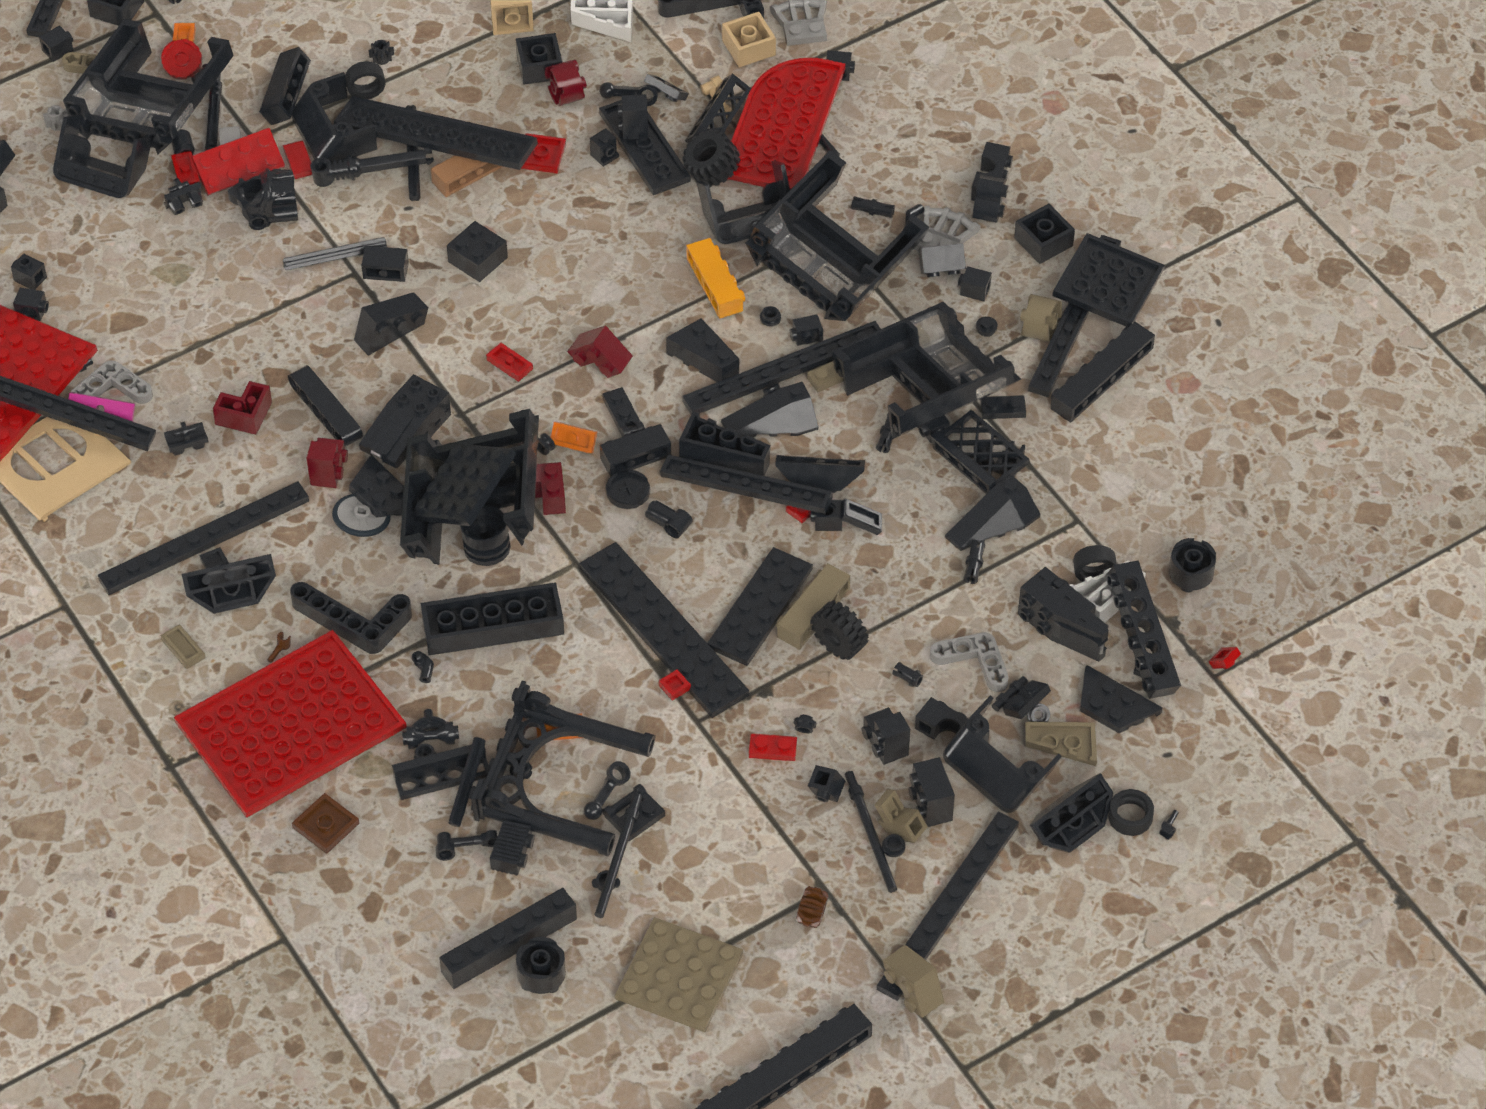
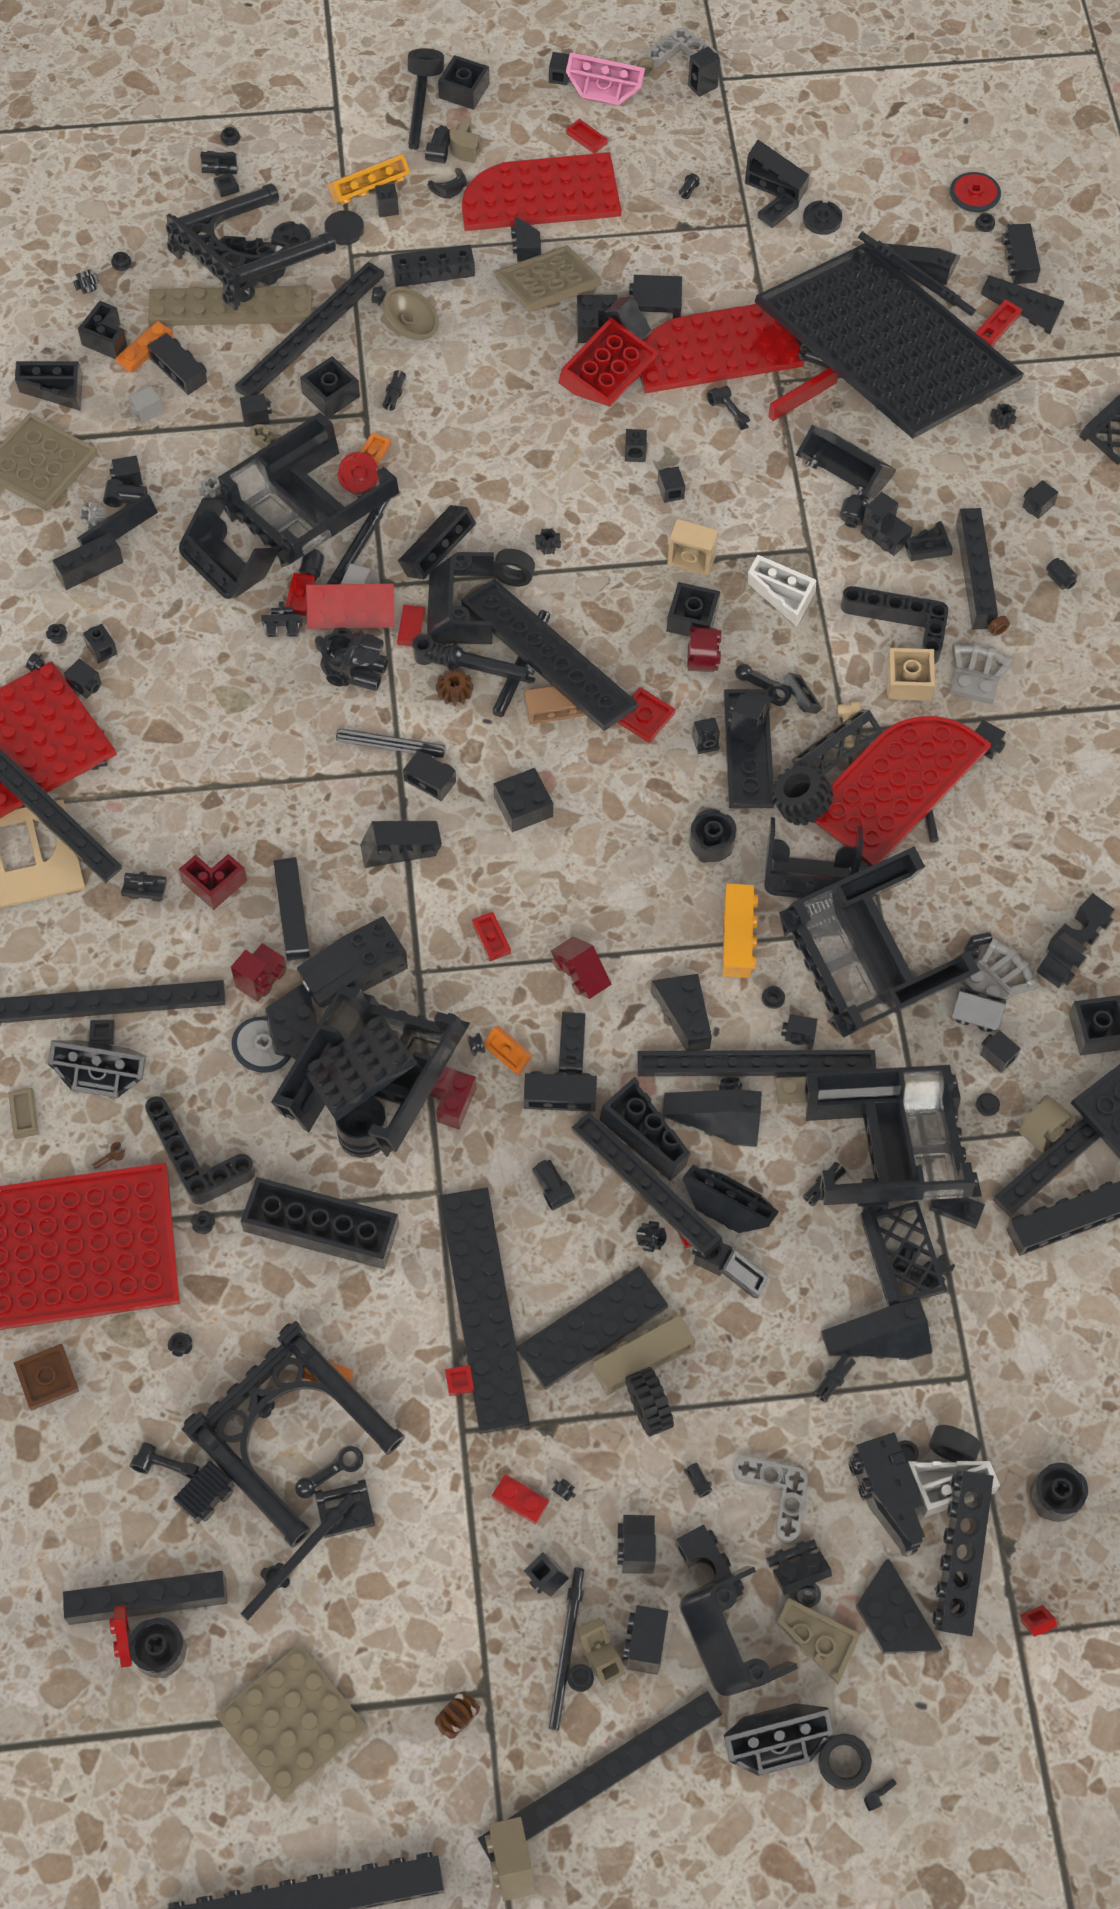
camera: 25 degrees right, 10 degrees up
(114, 407) = (95, 825): dark pink tile -> none
(115, 379) = (115, 790): light grey beam -> none
(366, 190) = (454, 687): none -> reddish brown gear
(390, 667) = (202, 1228): none -> black plate
(417, 732) = (180, 1319): black piece -> none
(425, 664) = (234, 1241): black arm -> none
(434, 766) = (184, 1361): black fence -> none
(466, 782) = (198, 1398): black axle -> none
(503, 959) = (120, 1626): none -> red plate
(628, 489) = (532, 1131): black tile -> none
(653, 217) = (712, 836): none -> black brick
(771, 521) = (651, 1236): none -> black gear
(872, 207) = (940, 915): black pin -> none

